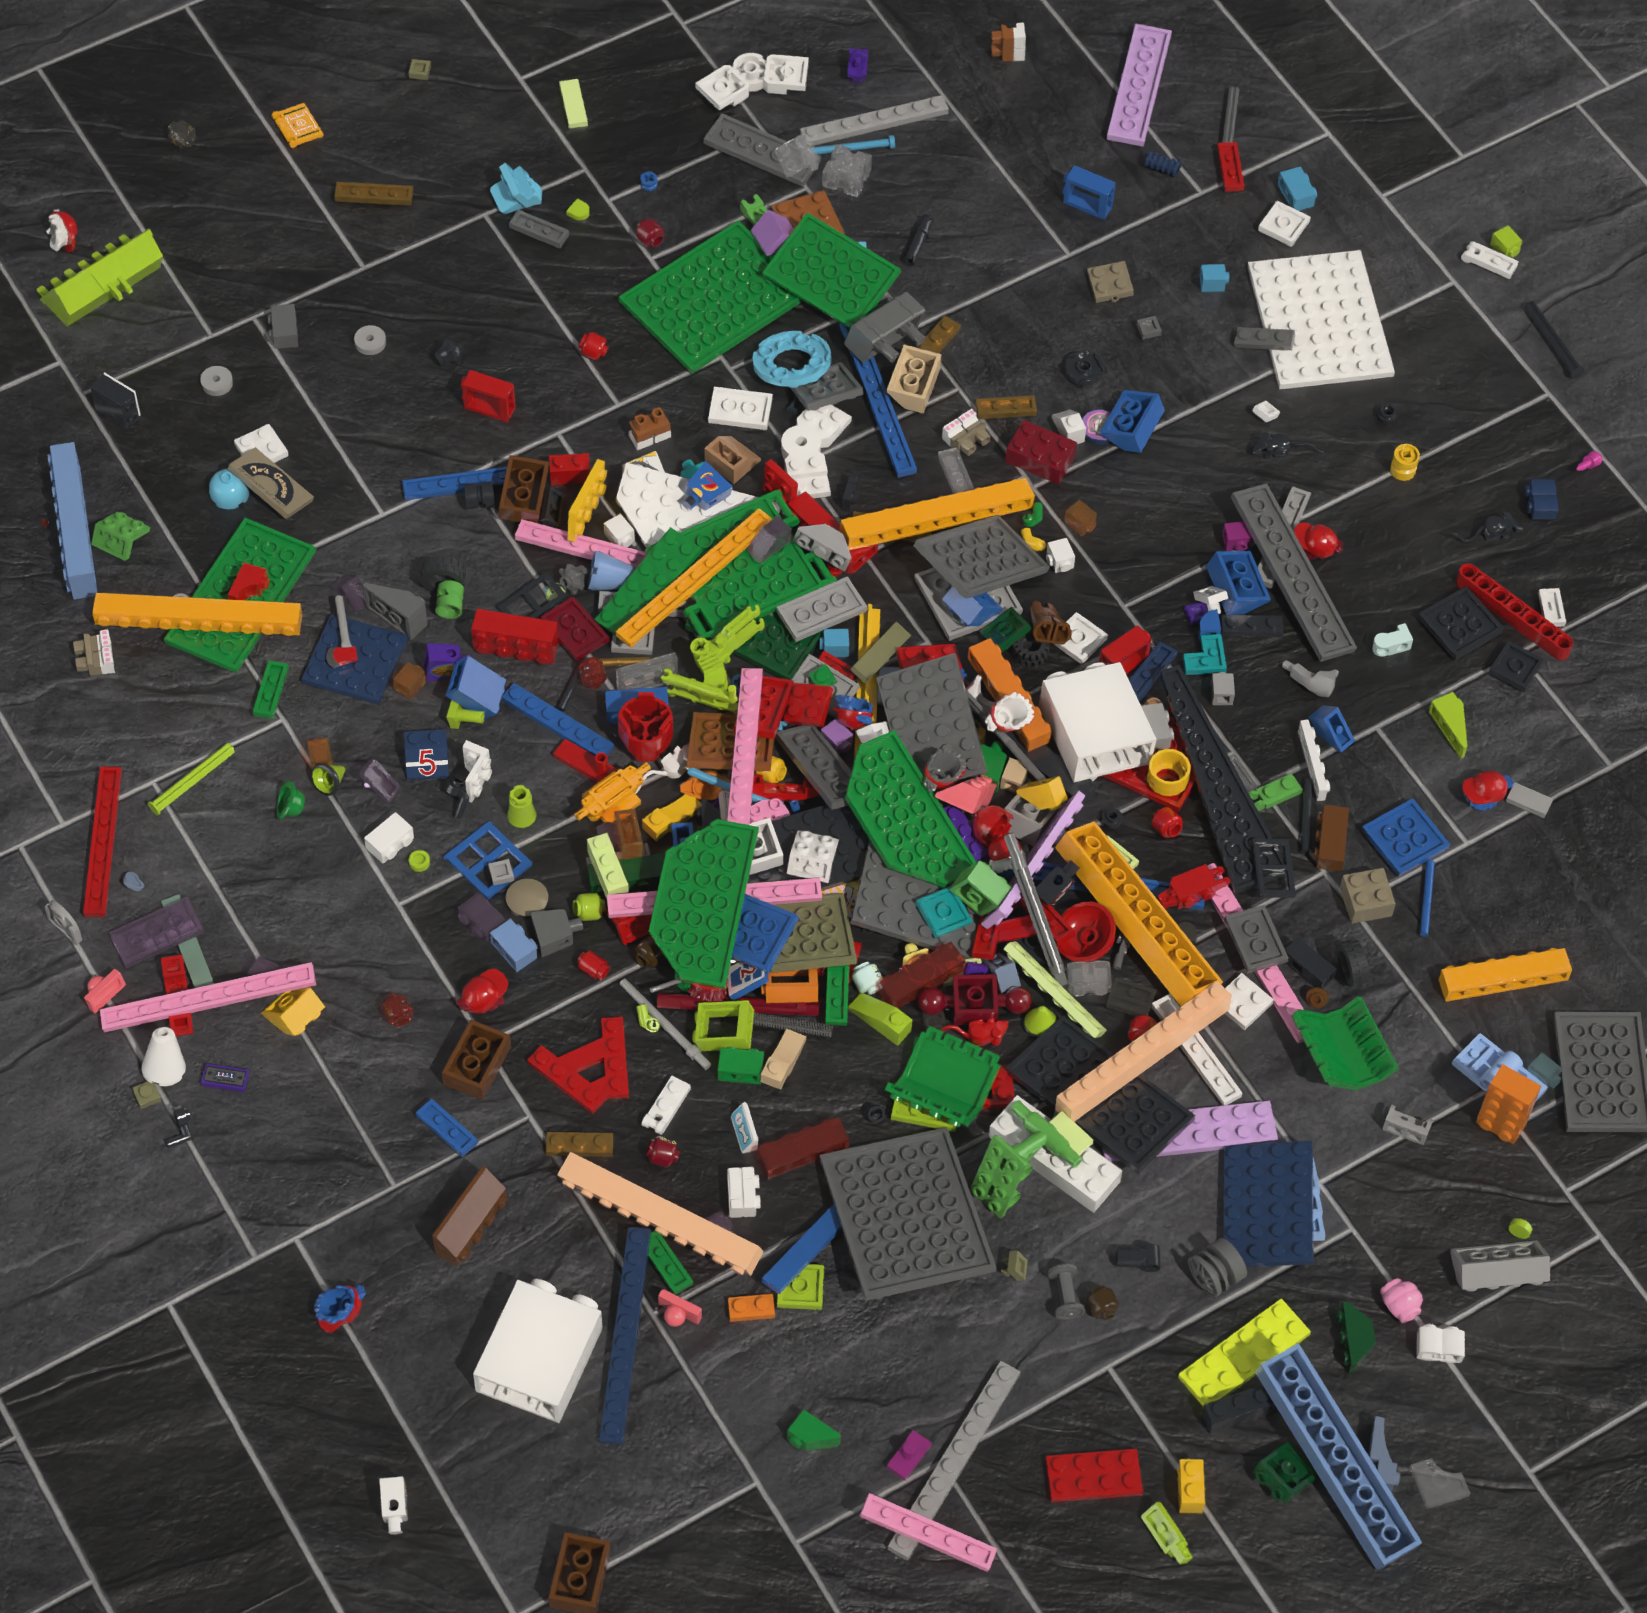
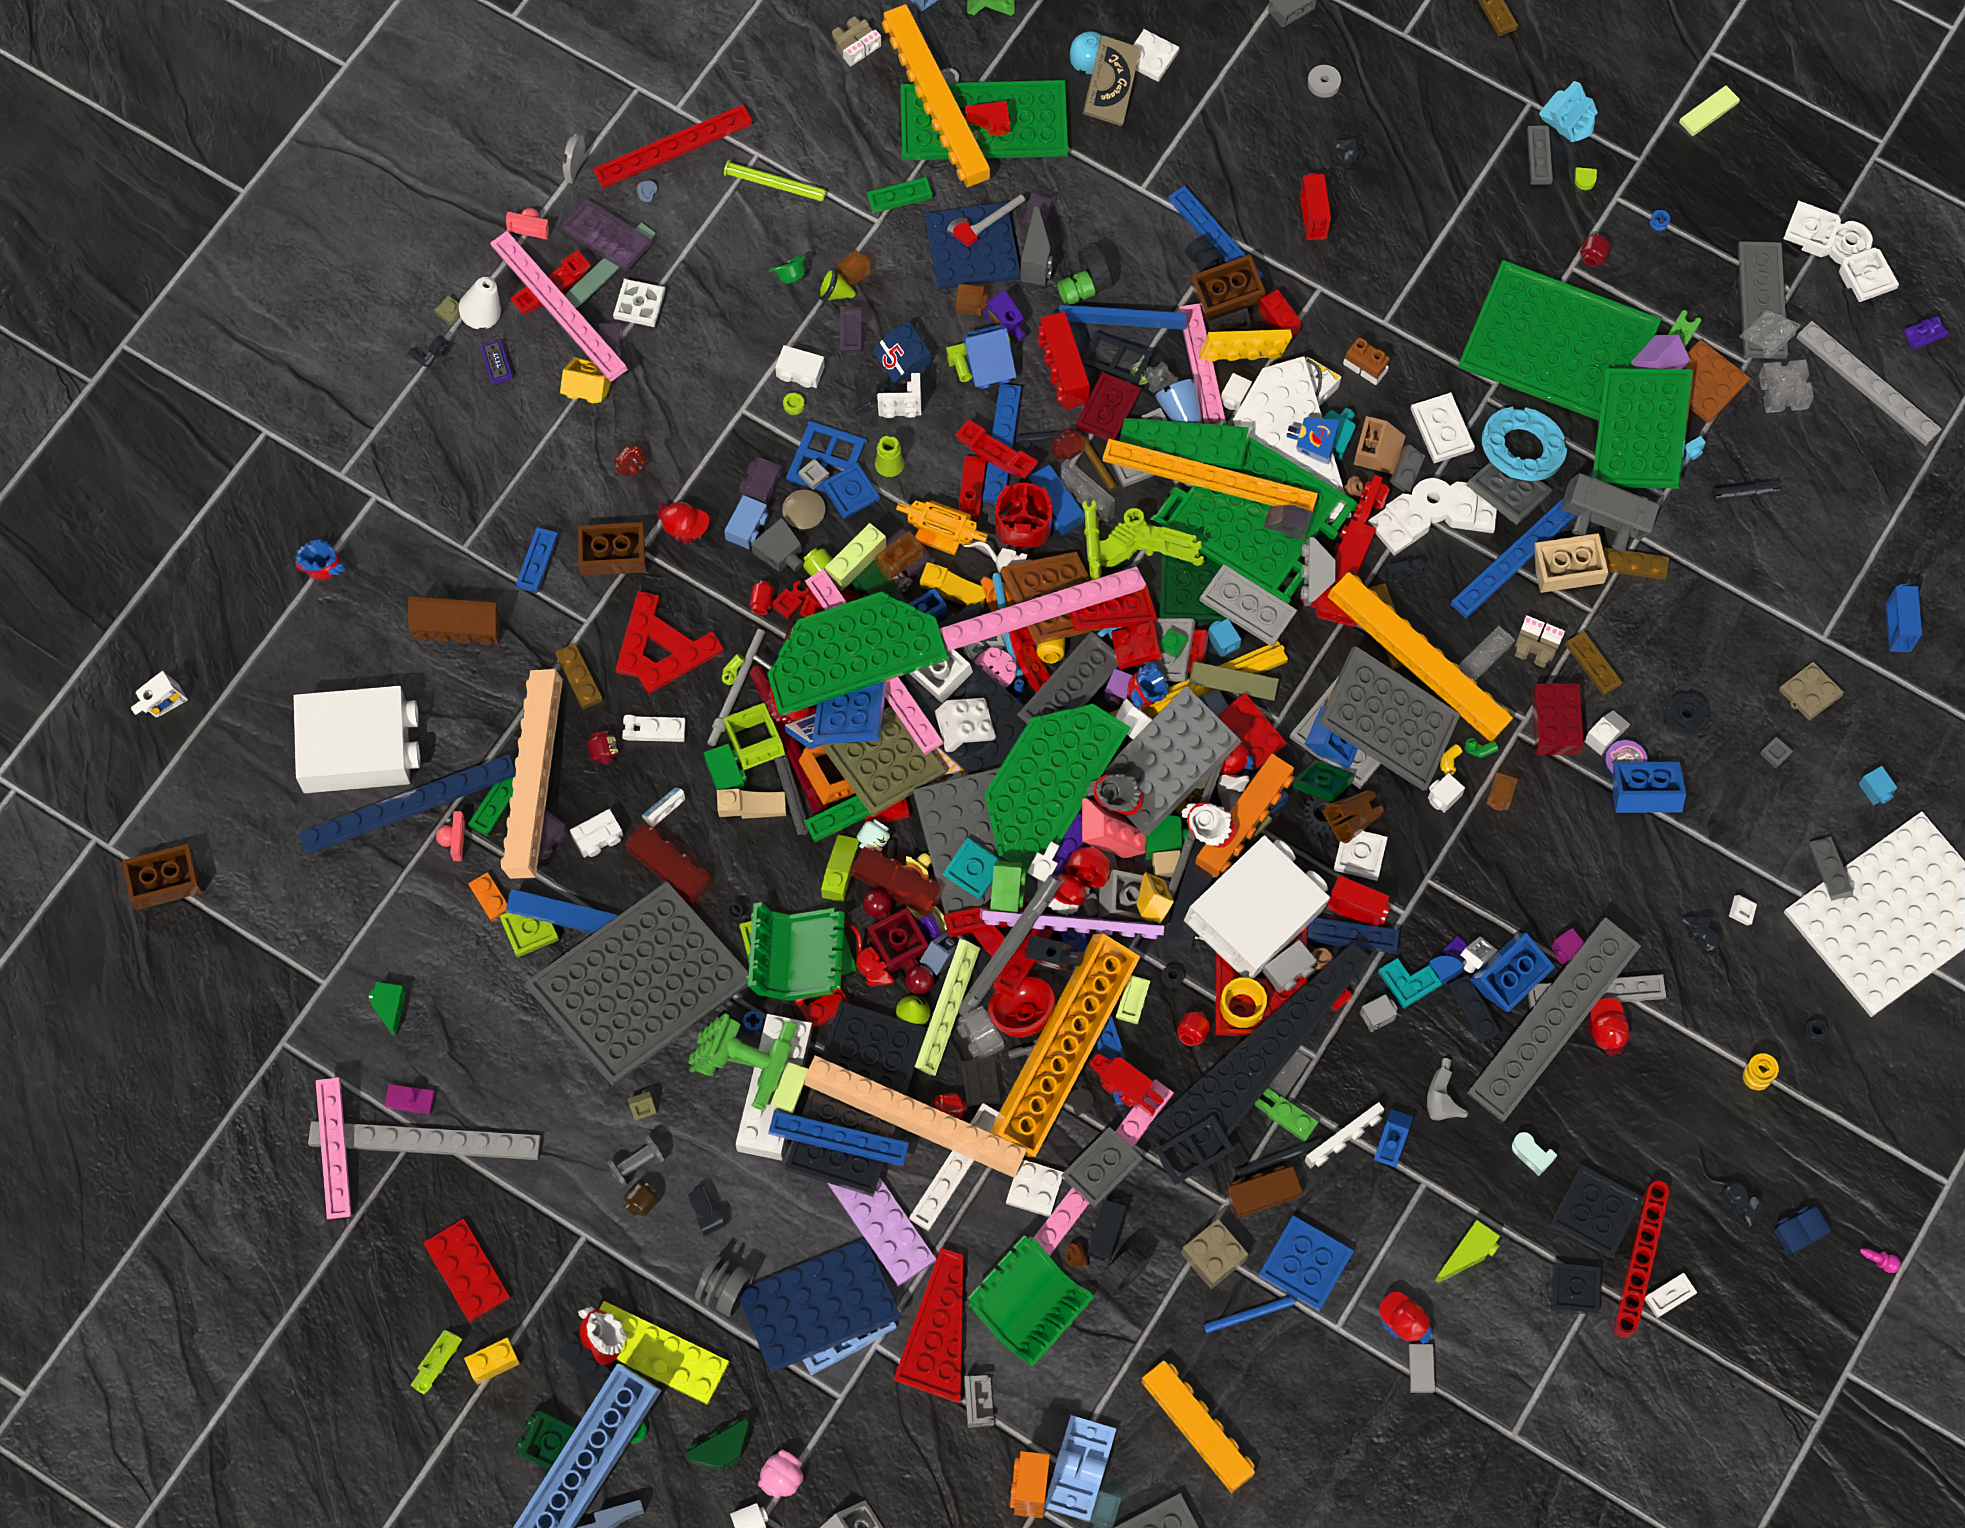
camera: 65 degrees right, 10 degrees up
(242, 936) = (639, 302): none -> white piece
(500, 576) = (1124, 317): none -> blue tile
(532, 853) = (850, 491): none -> blue tile
(571, 724) = (994, 451): none -> red slope
(593, 346) = (1432, 267): red head -> none
(608, 946) = (789, 602): none -> red plate
(759, 488) = (1353, 487): none -> medium nougat plate
(761, 447) = (1407, 468): none -> dark grey plate
(859, 145) = (1850, 409): dark azure bar -> none
(971, 853) = (1043, 865): none -> white plate
(981, 1141) = (758, 1027): none -> blue bush
(1132, 1118) = (838, 1138): none -> blue tile
(1216, 1379) = (601, 1334): none -> white hair
(1337, 1131) = (934, 1344): none -> red wing

